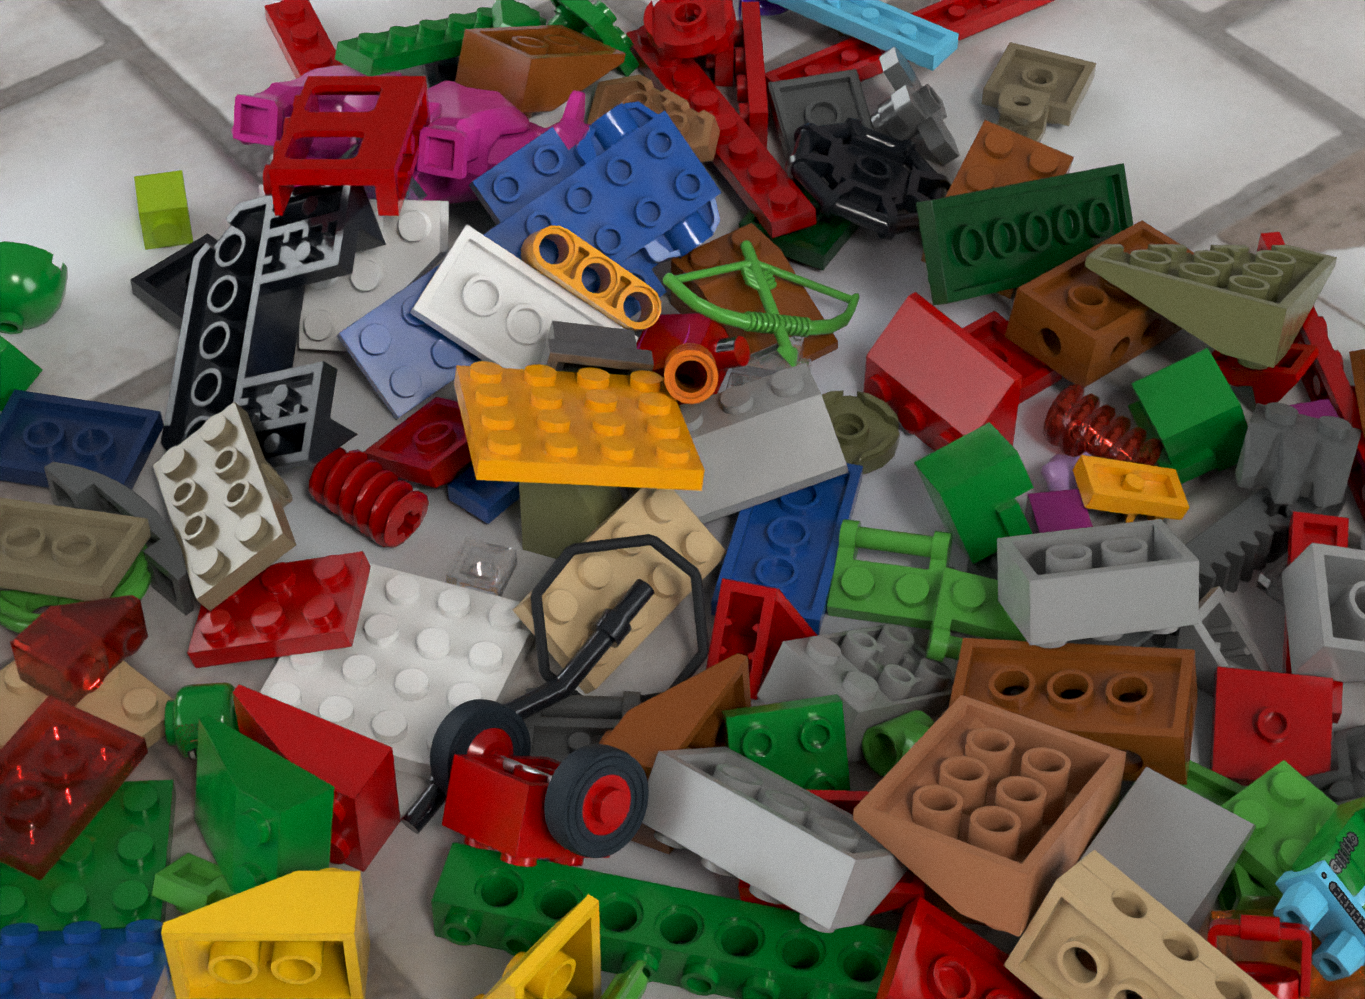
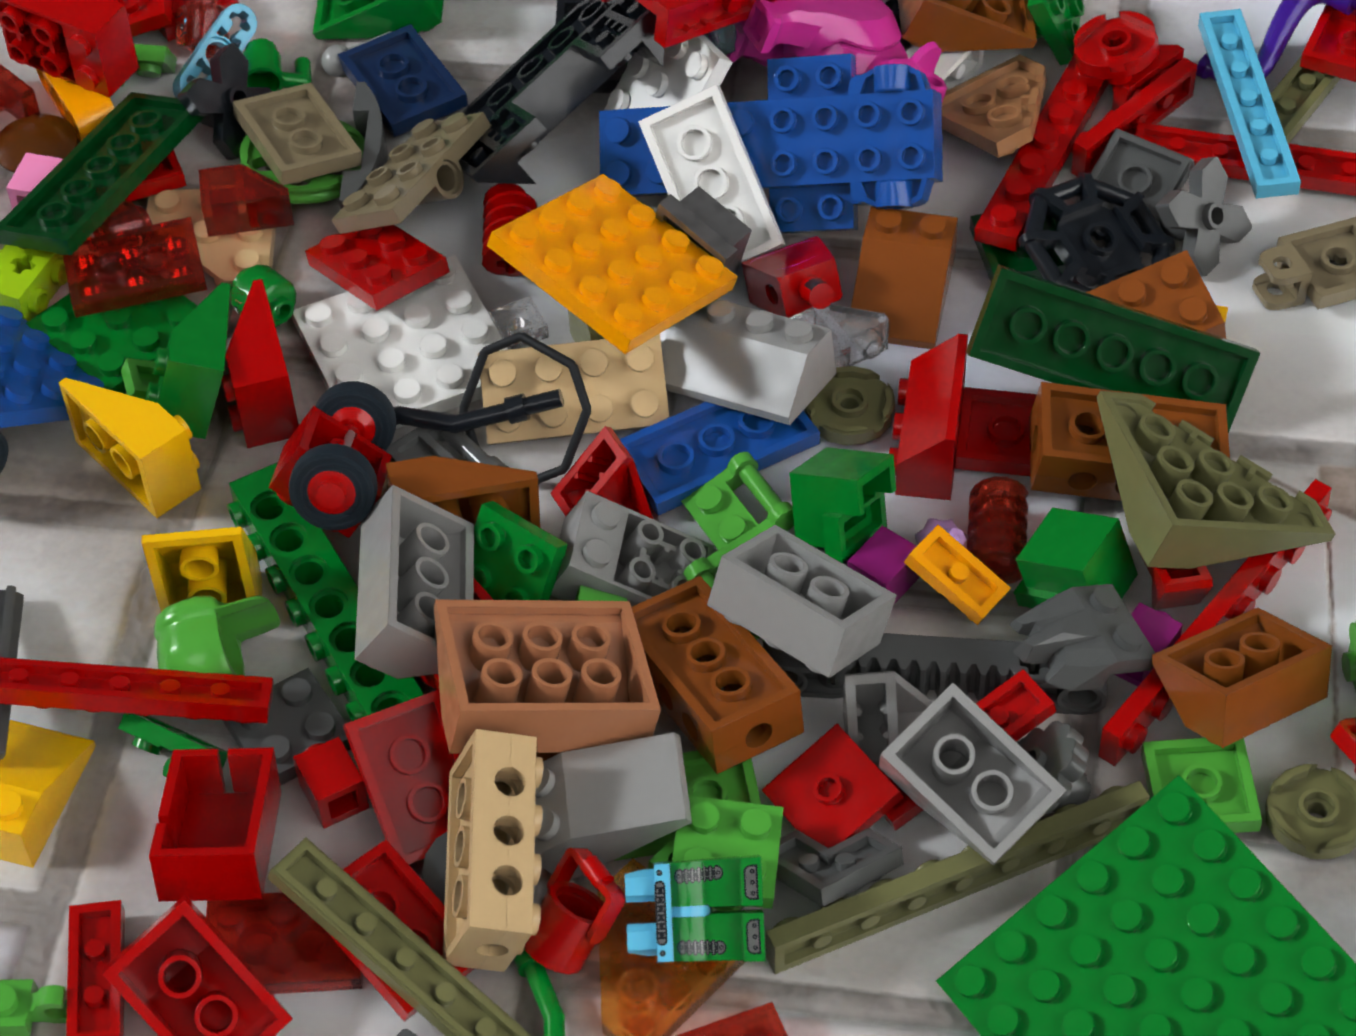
camera: 50 degrees right, 5 degrees up
(615, 281) = (761, 167): light orange beam -> none
(690, 393) = (747, 282): orange pin -> none
(760, 277) = (900, 260): bright green piece -> none

